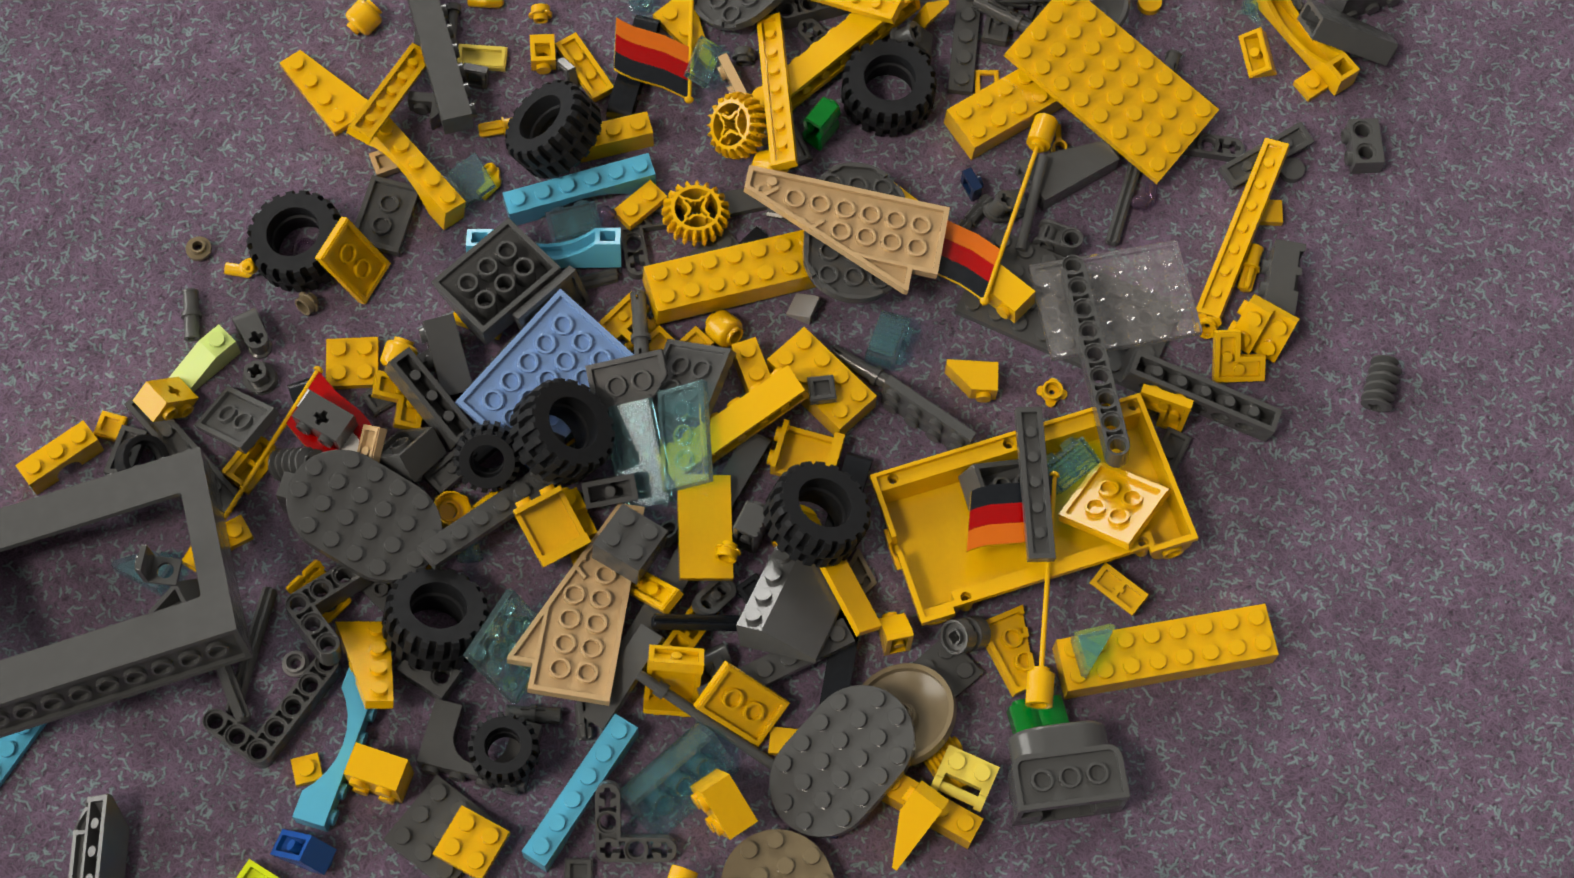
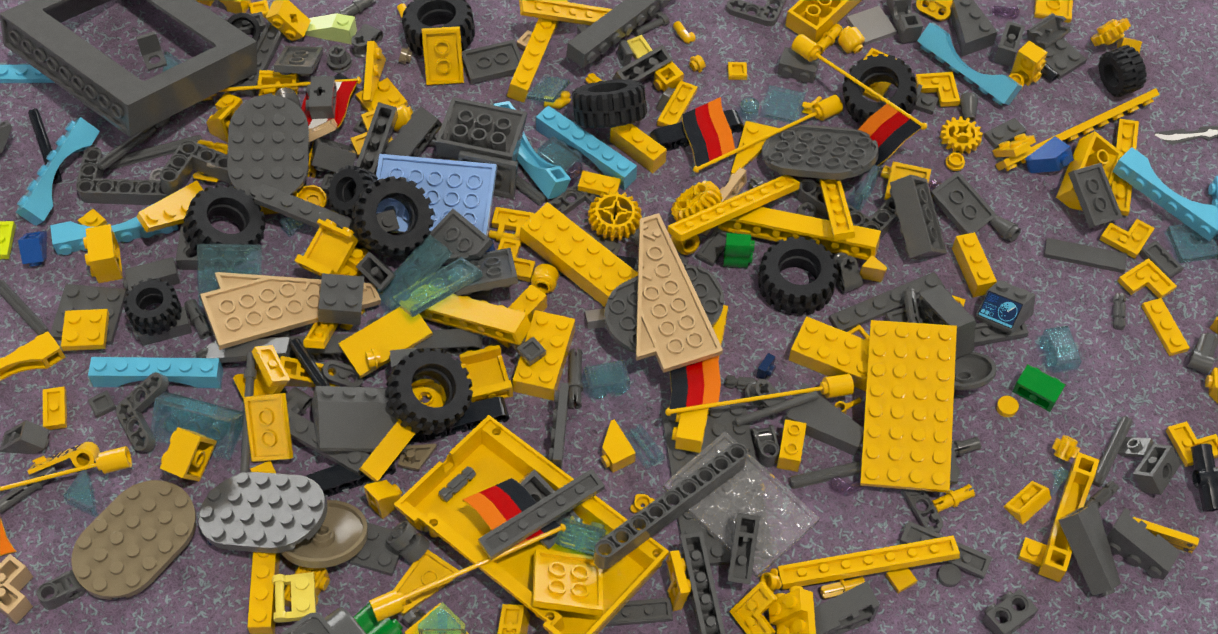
camera: 60 degrees right, 10 degrees down
(149, 774) = (42, 139): none -> black axle
(238, 814) = (38, 201): none -> medium azure arch
(269, 552) = (219, 123): none -> yellow slope
(317, 347) = (374, 66): none -> yellow wing
(515, 68) = (645, 66): none -> dark grey brick
(640, 336) = (499, 232): dark grey pin -> none
(703, 61) = (730, 162): clear light blue tile -> none
(915, 818) = (240, 578): yellow slope -> none
(922, 552) = (457, 484): none -> dark grey axle
(987, 352) = (634, 432): none -> clear light blue tile
(1076, 213) = (791, 445): none -> yellow brick
(1170, 321) = (744, 547): none -> dark grey slope
(1217, 122) = (953, 498): none -> yellow pin

